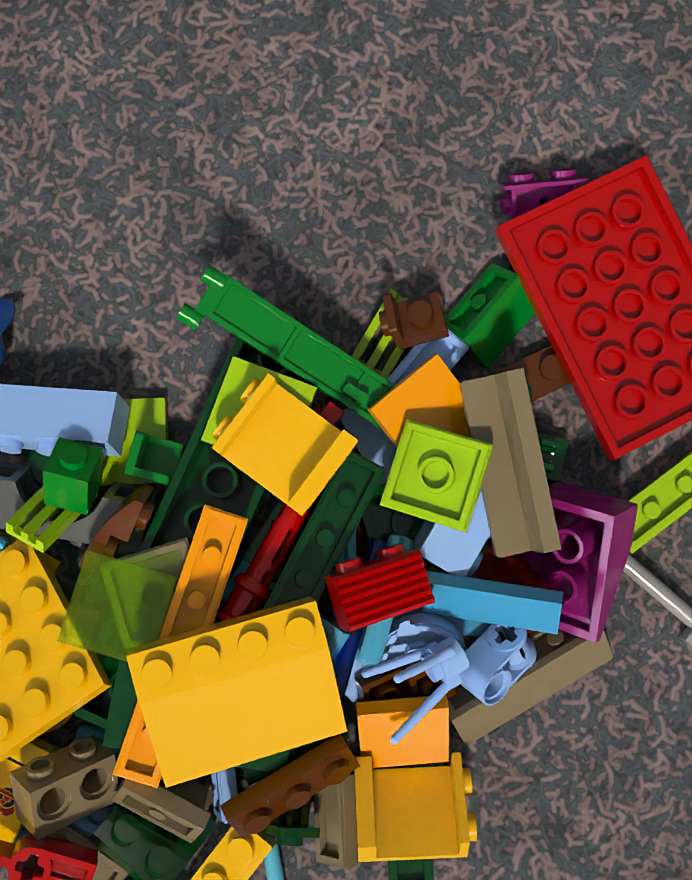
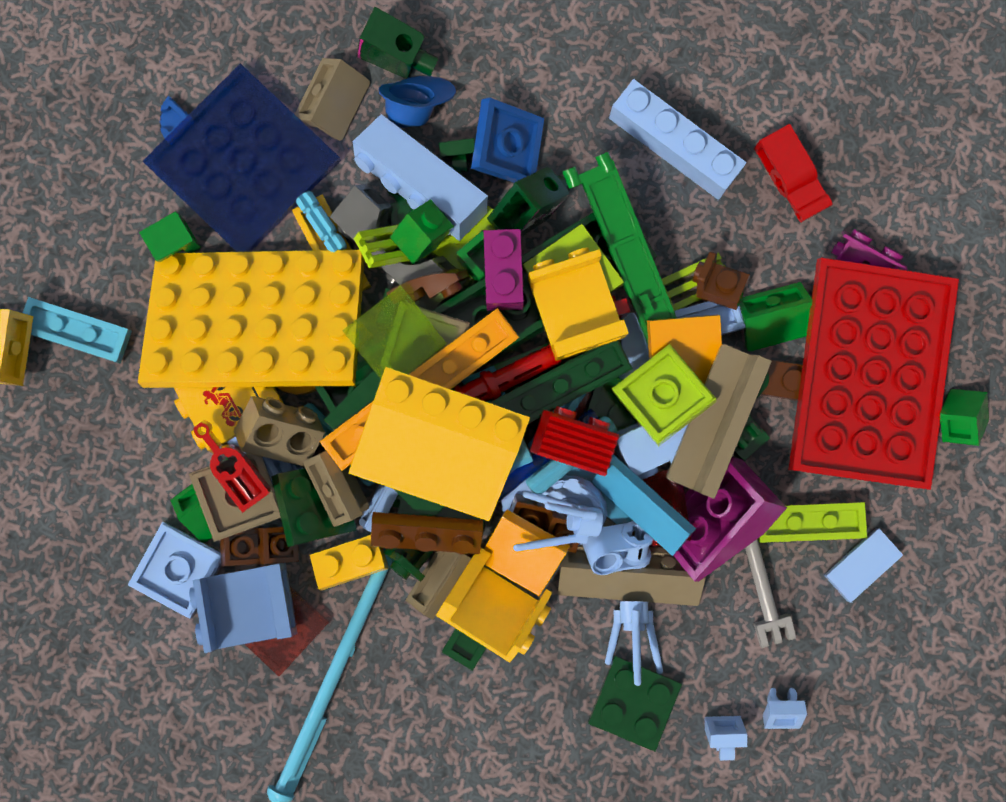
camera: 35 degrees right, 0 degrees up
(58, 364) = (458, 151): none -> dark green tile
(101, 322) = (506, 141): none -> blue plate
(169, 351) = (540, 191): none -> dark green torso
(183, 460) = (503, 269): none -> magenta brick
(270, 203) = (676, 139): none -> light blue brick
(410, 158) = (793, 172): none -> red piece
(558, 716) = (634, 618): none -> light blue plant
(618, 802) = (633, 710): none -> dark green plate

